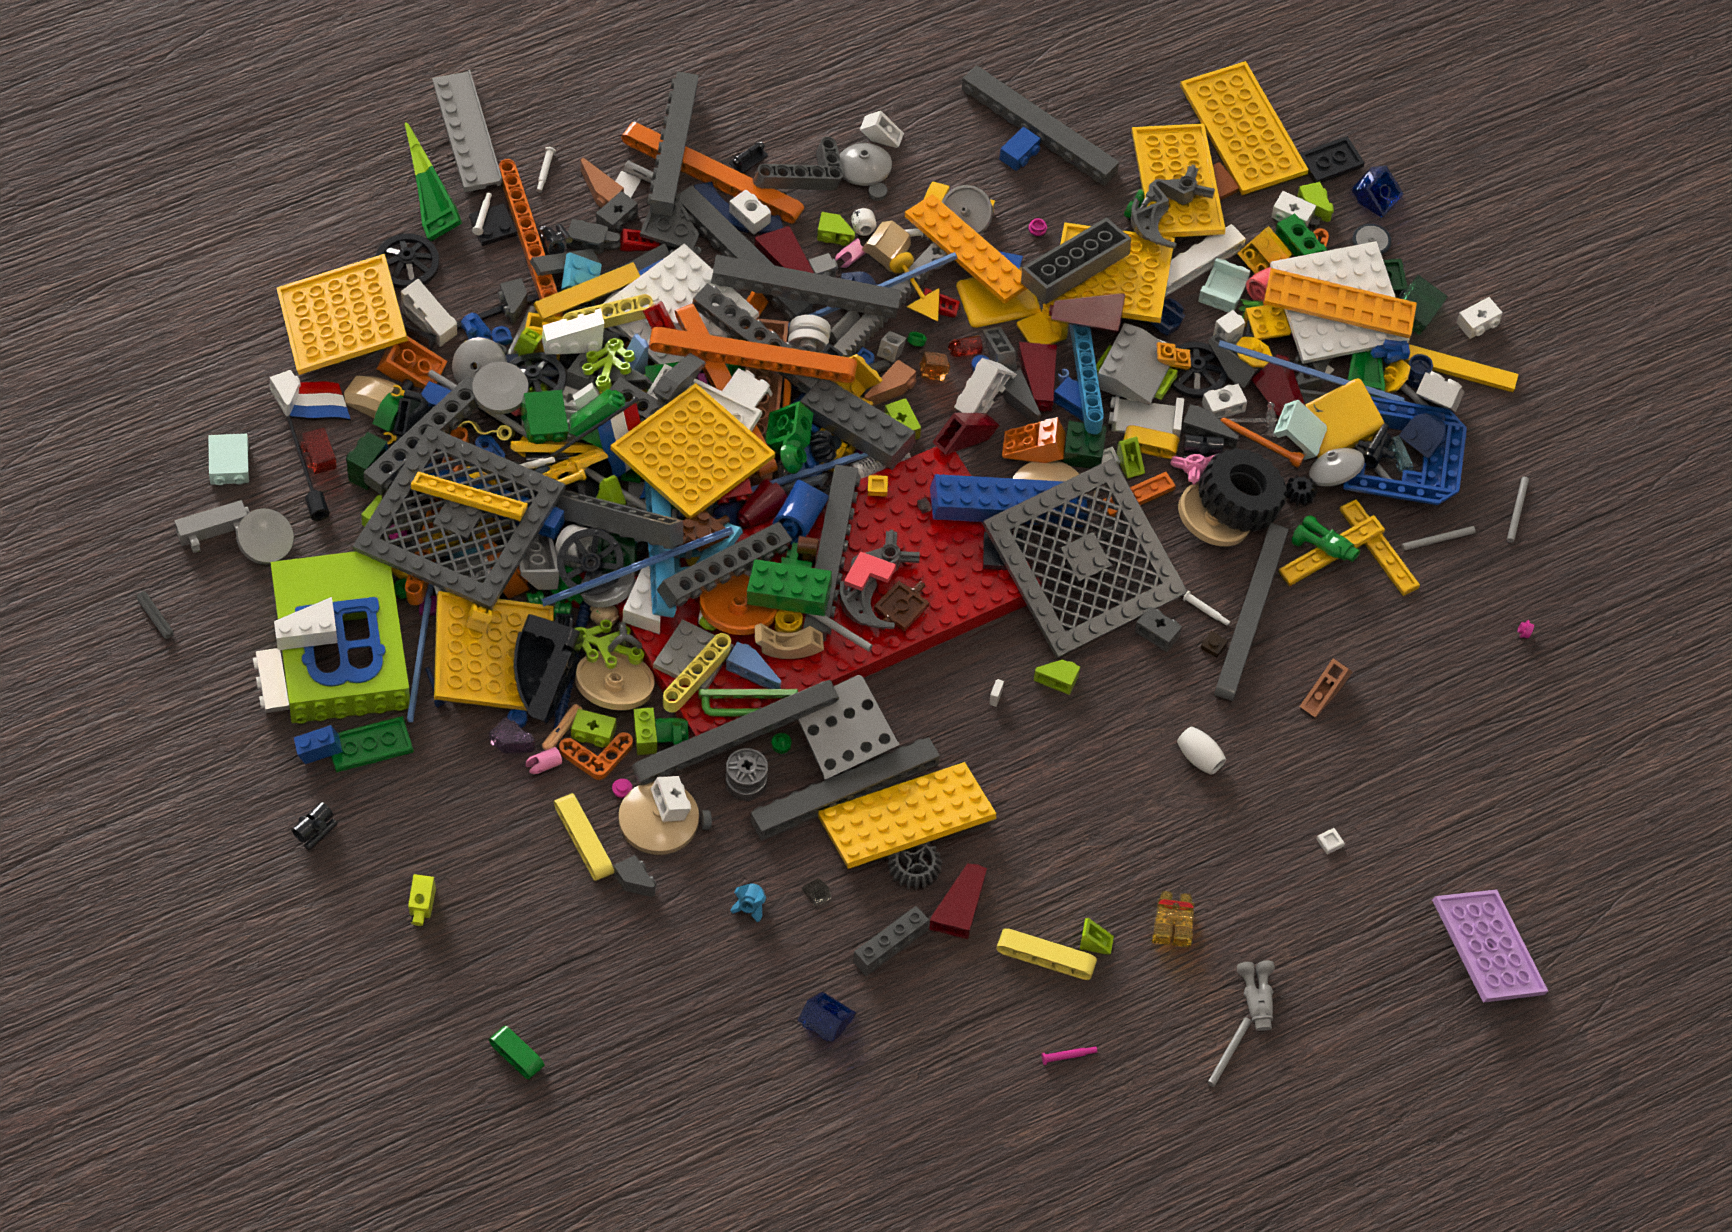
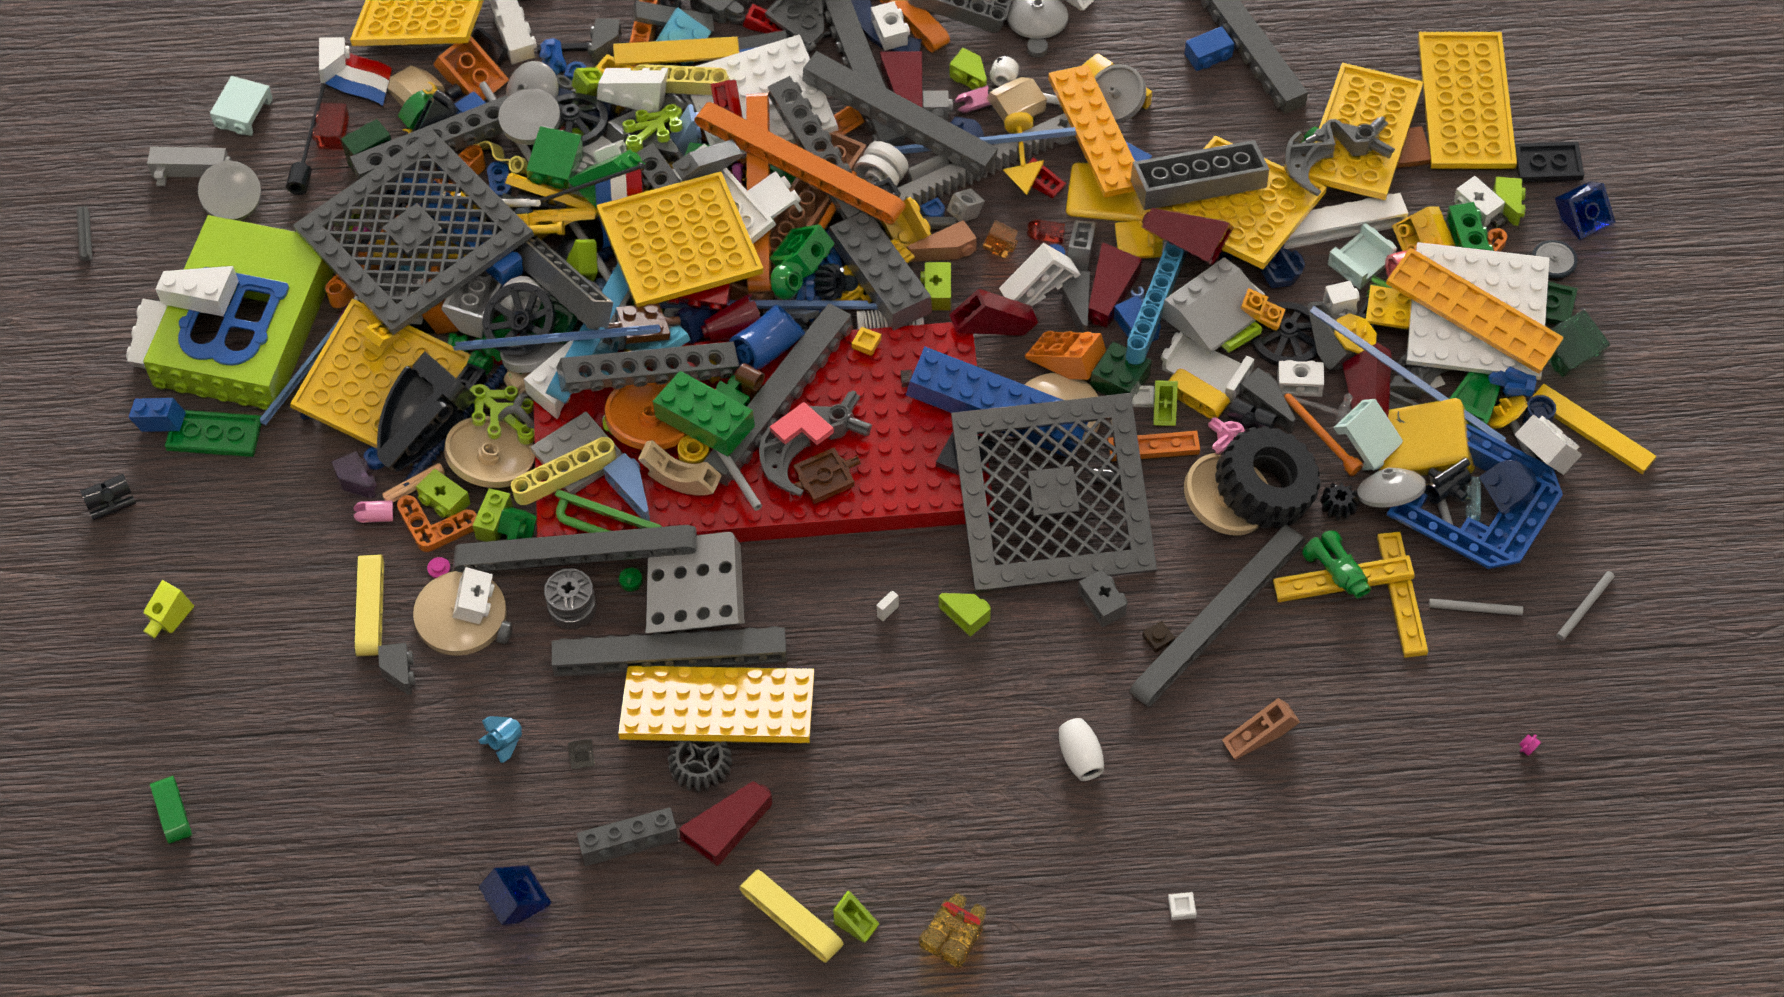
camera: 30 degrees right, 0 degrees up
(469, 496) = (429, 211): yellow tile -> none
(916, 339) = (998, 207): green tile -> none
(1037, 227) = (1188, 133): dark pink plate -> none
(1205, 608) = (1168, 593): white piece -> none
(1479, 318) = (1638, 380): white brick -> none

